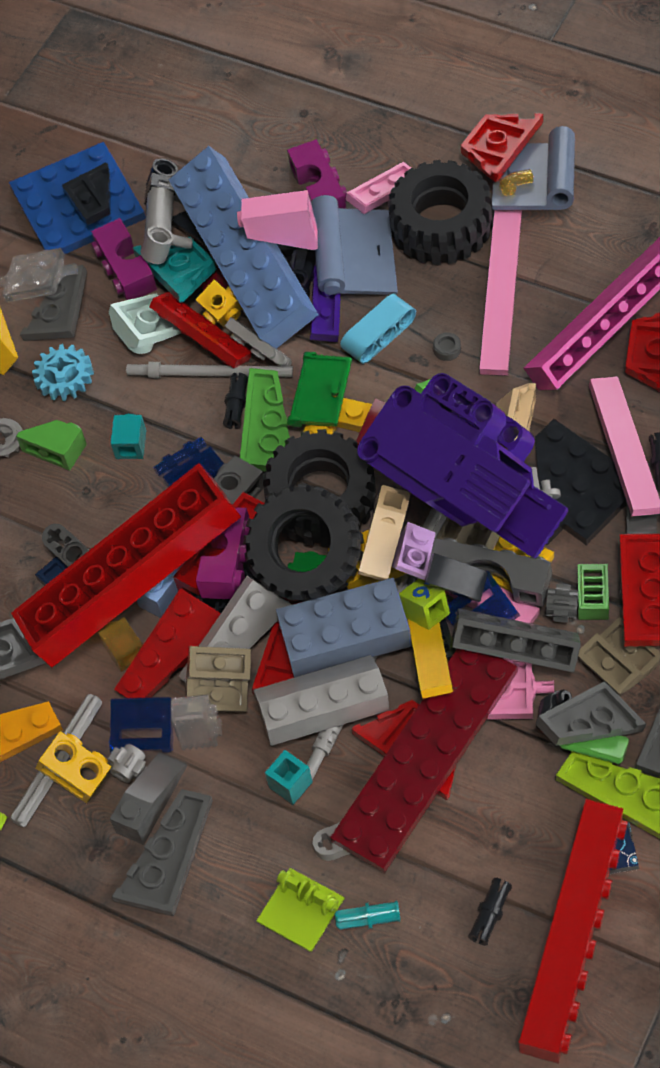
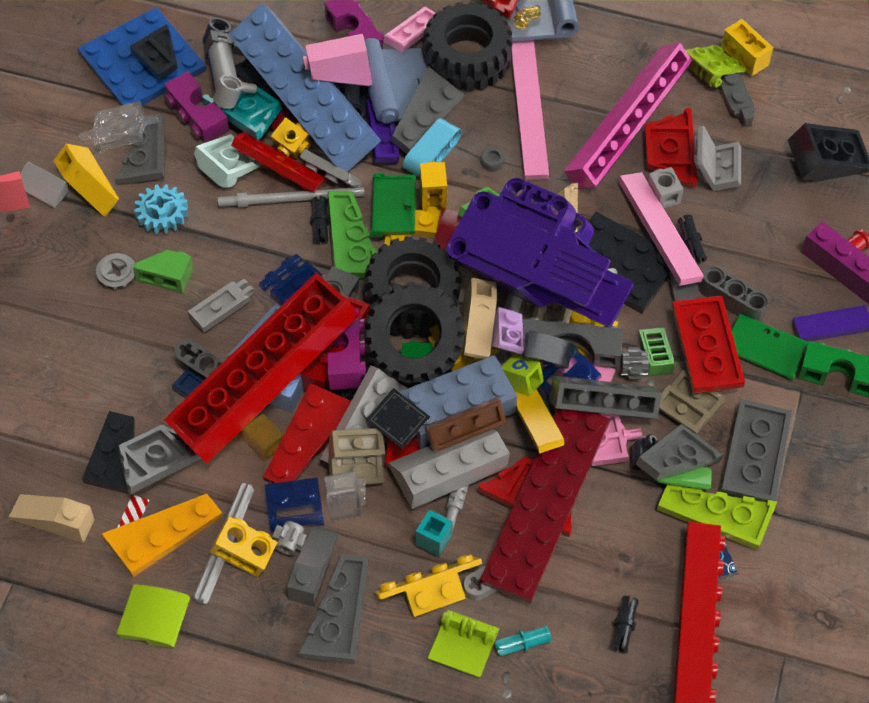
camera: 20 degrees left, 0 degrees up
(107, 487) = (221, 304): none -> light grey hinge
(128, 436) = (232, 259): teal brick -> none
(268, 639) = (398, 418): none -> black sticker
(278, 841) = (431, 589): none -> yellow bracket
(344, 655) = (465, 424): none -> reddish brown tile
(366, 373) = (433, 186): none -> yellow brick
(388, 272) = (432, 100): none -> dark grey wing
(641, 407) = (671, 192): none -> light grey brick

